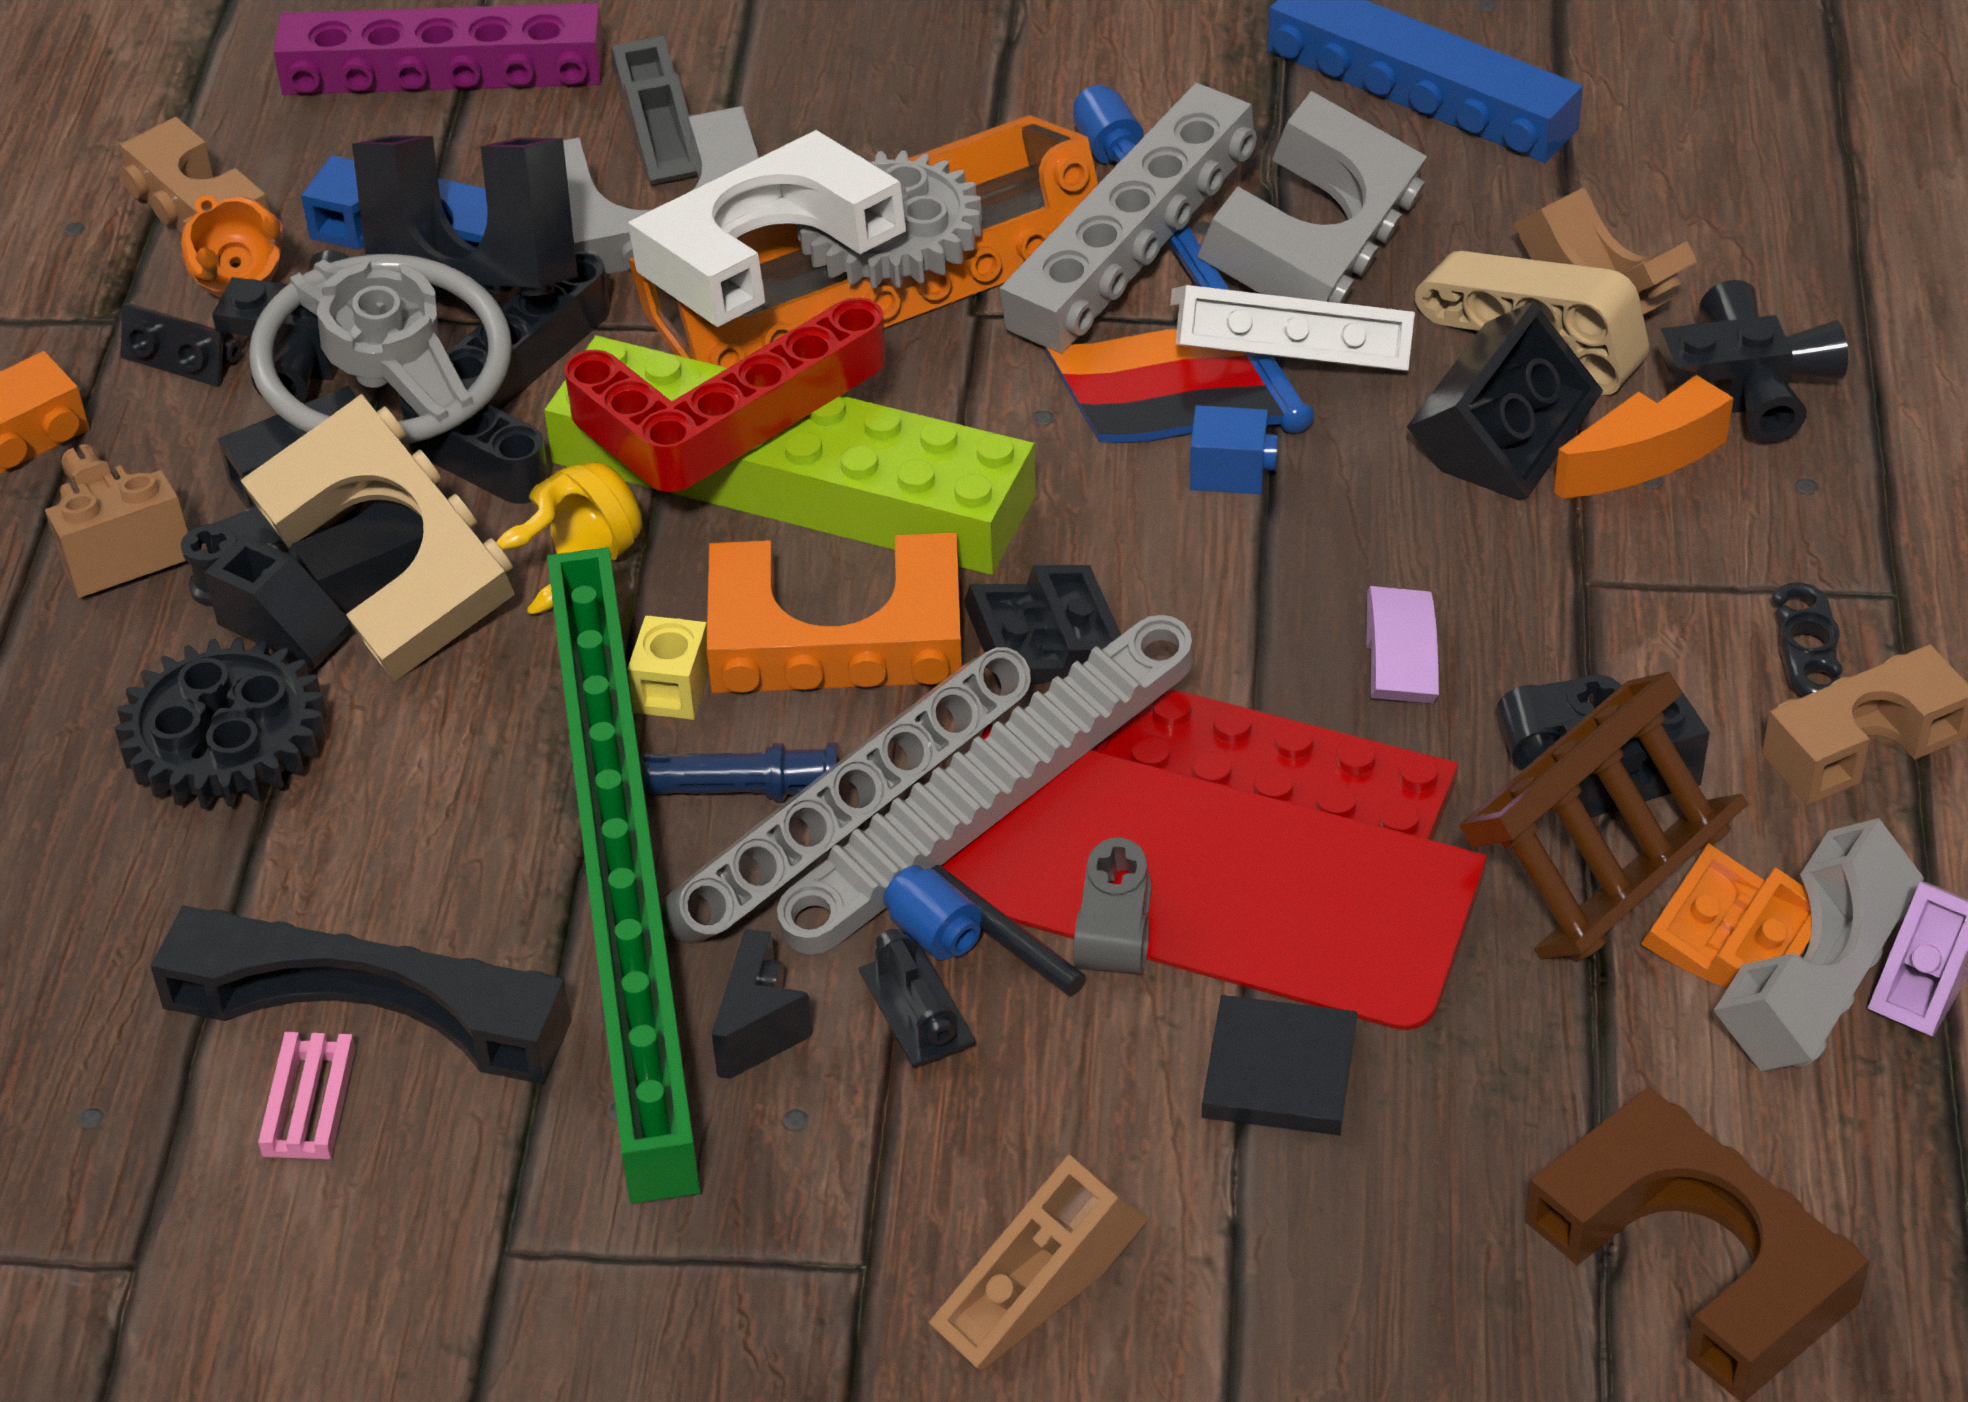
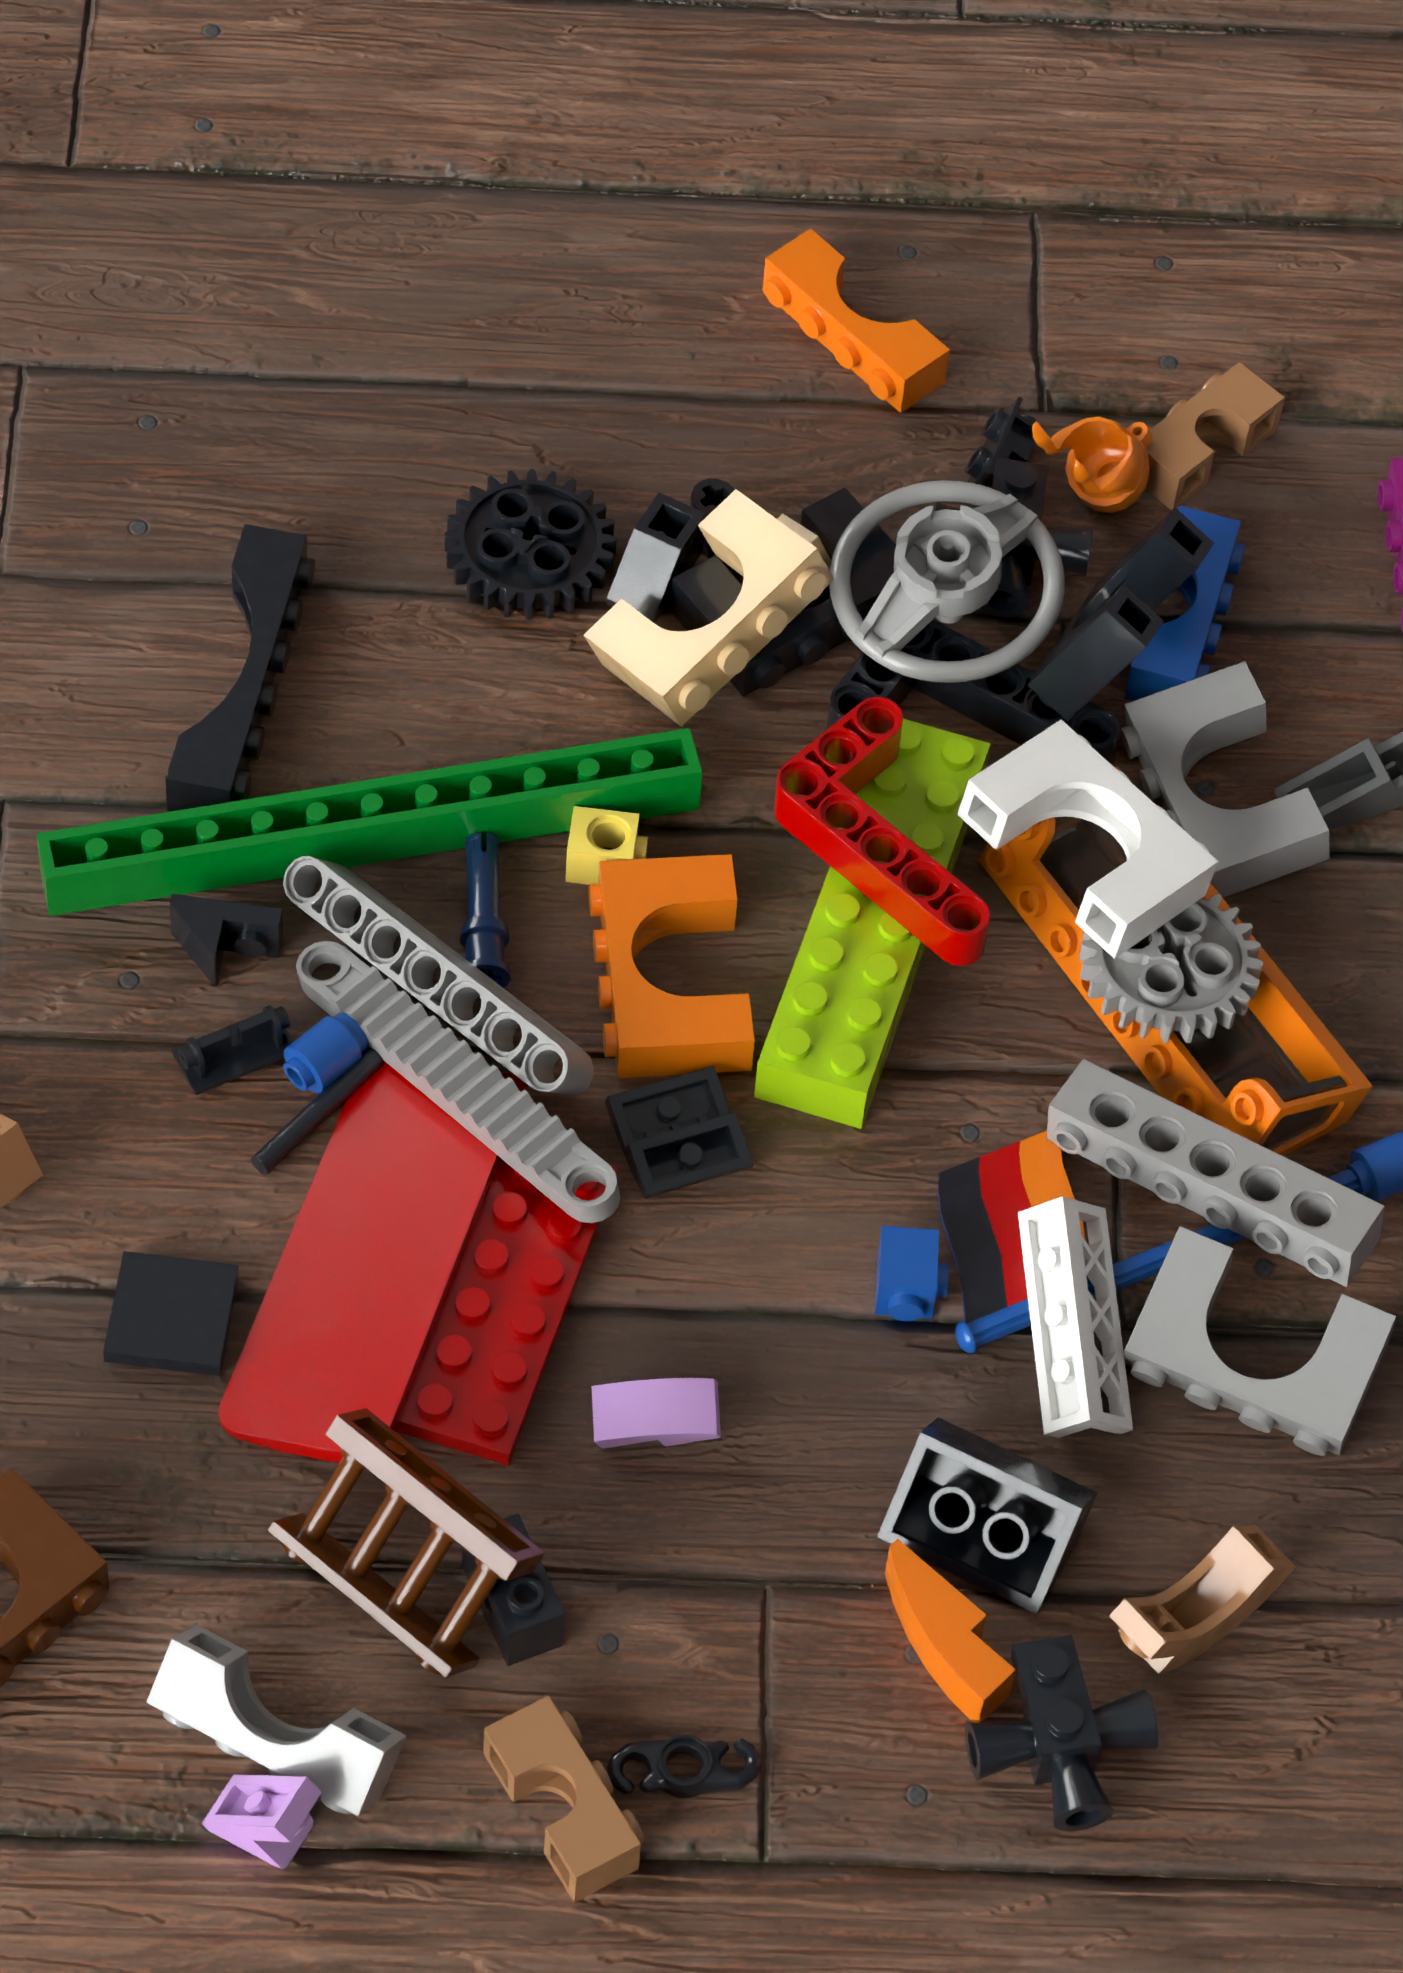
camera: 80 degrees right, 10 degrees up
(113, 525) = (758, 435): medium nougat brick -> none
(314, 1053) = (150, 647): bright pink tile -> none
(586, 510) = (759, 779): yellow hair -> none
(1112, 917) = (313, 1181): dark grey piece -> none
(1534, 713) = (558, 1527): black piece -> none
(1588, 306) = (1115, 1542): tan beam -> none
(1730, 919) = (326, 1667): orange slope -> none

